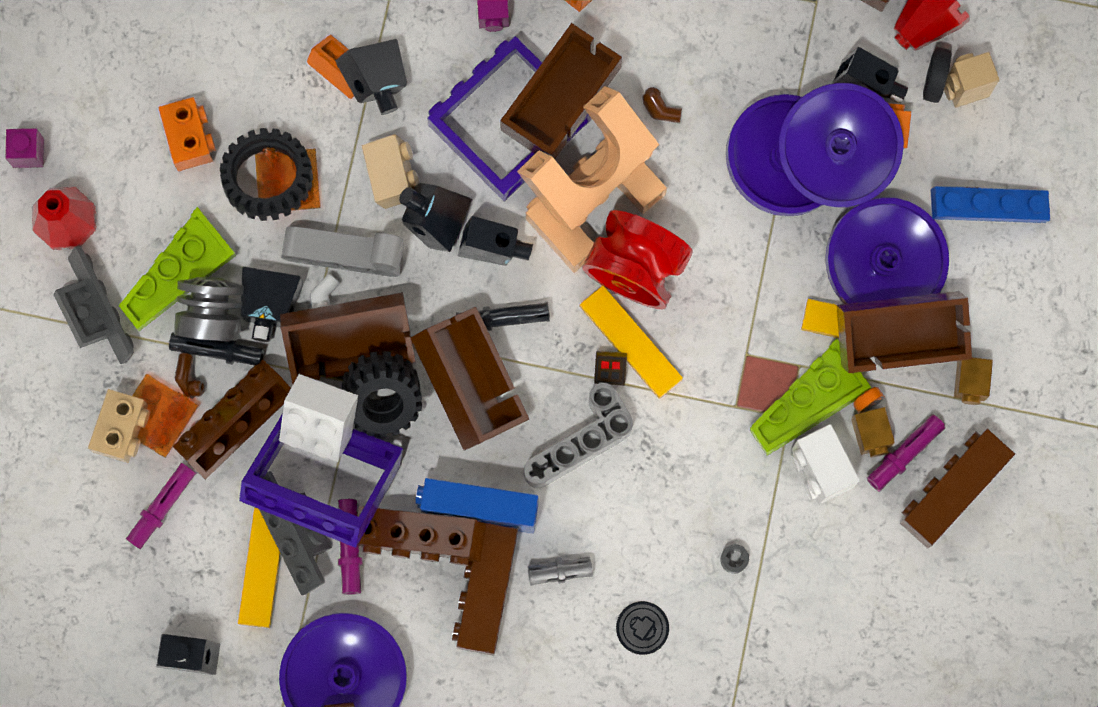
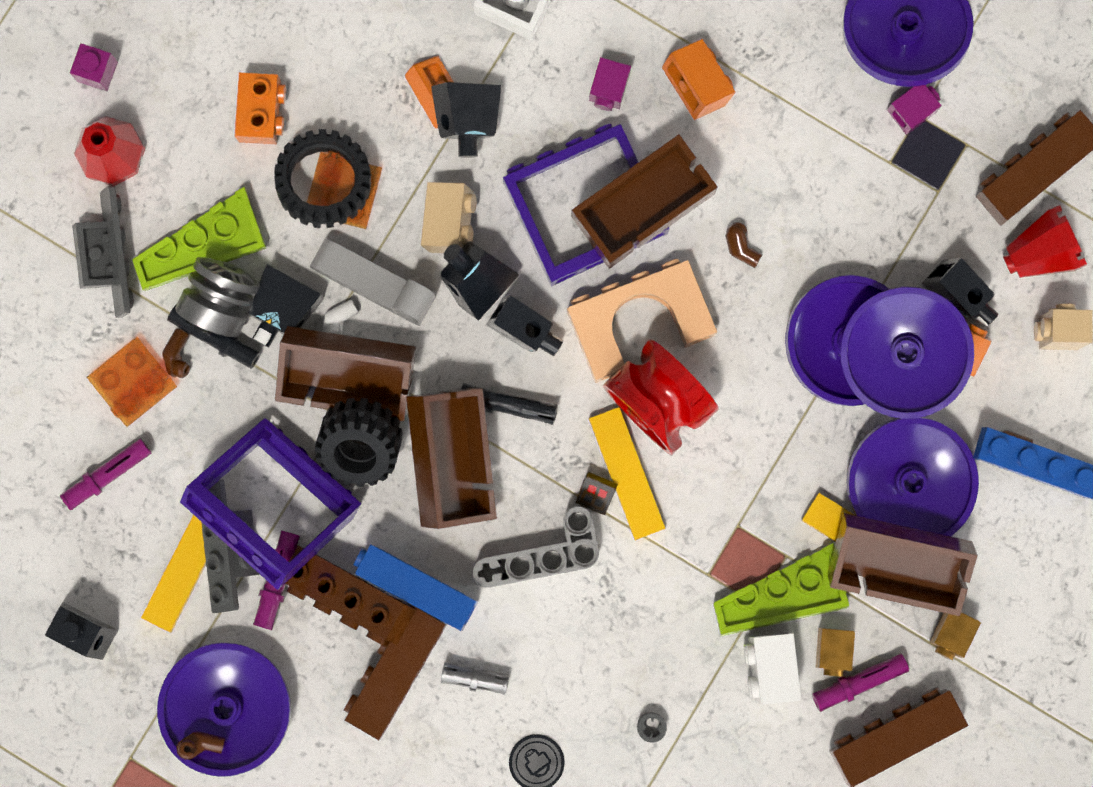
camera: 20 degrees right, 5 degrees up
(119, 426) = (91, 382): tan brick -> none
(233, 419) = (205, 414): reddish brown brick -> none
(318, 418) = (285, 447): white brick -> none
(626, 148) = (690, 279): light nougat arch -> none
(868, 400) = (842, 616): orange tile -> none
(937, 75) = (1032, 311): black tyre -> none

